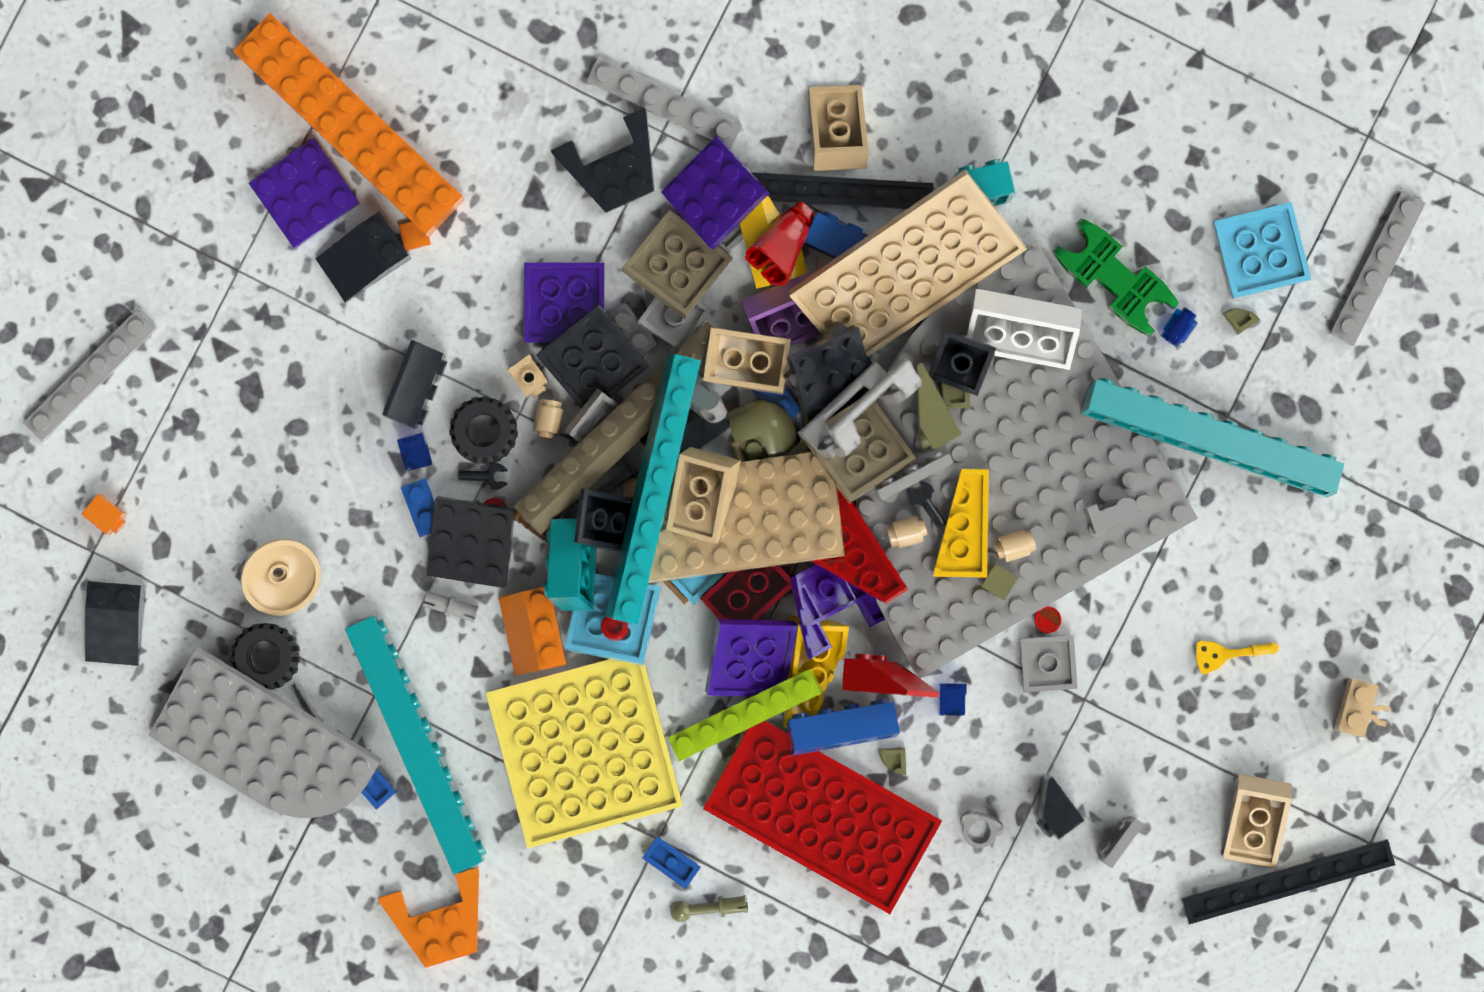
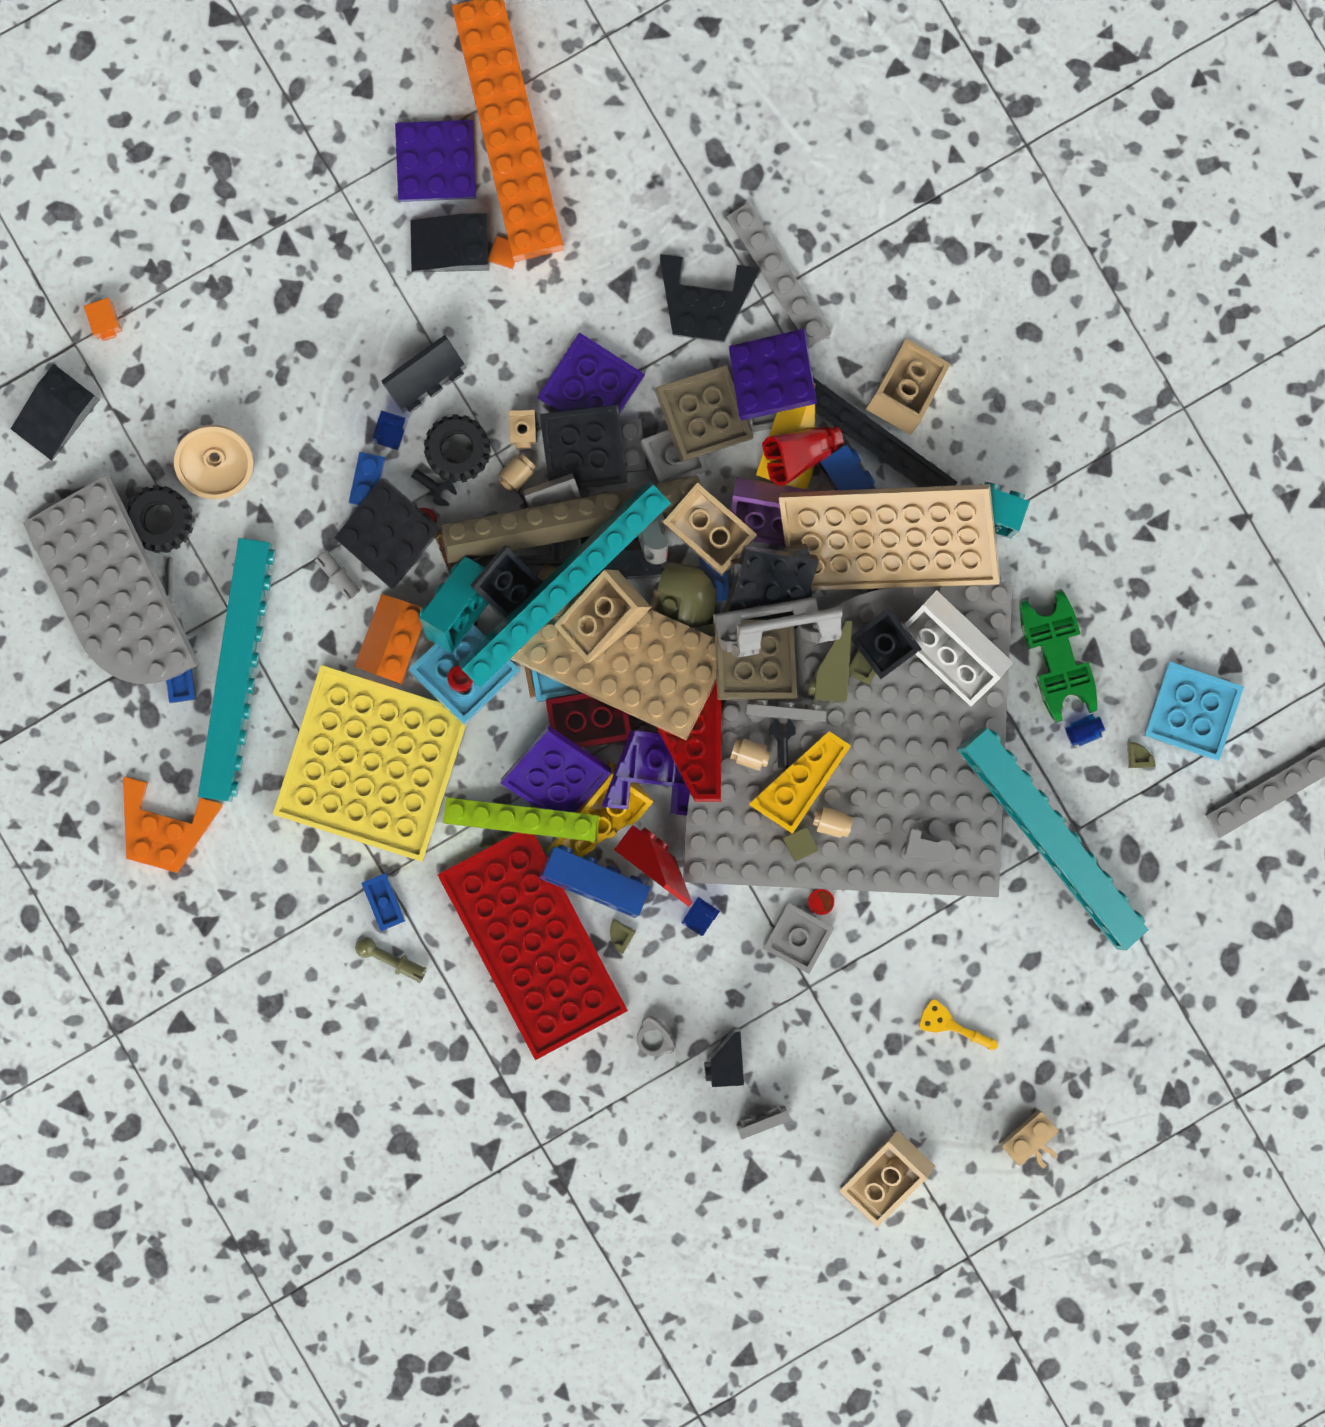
camera: 25 degrees right, 0 degrees up
(90, 375) = (164, 198): light grey plate -> none
(1288, 881) = (880, 1244): black plate -> none

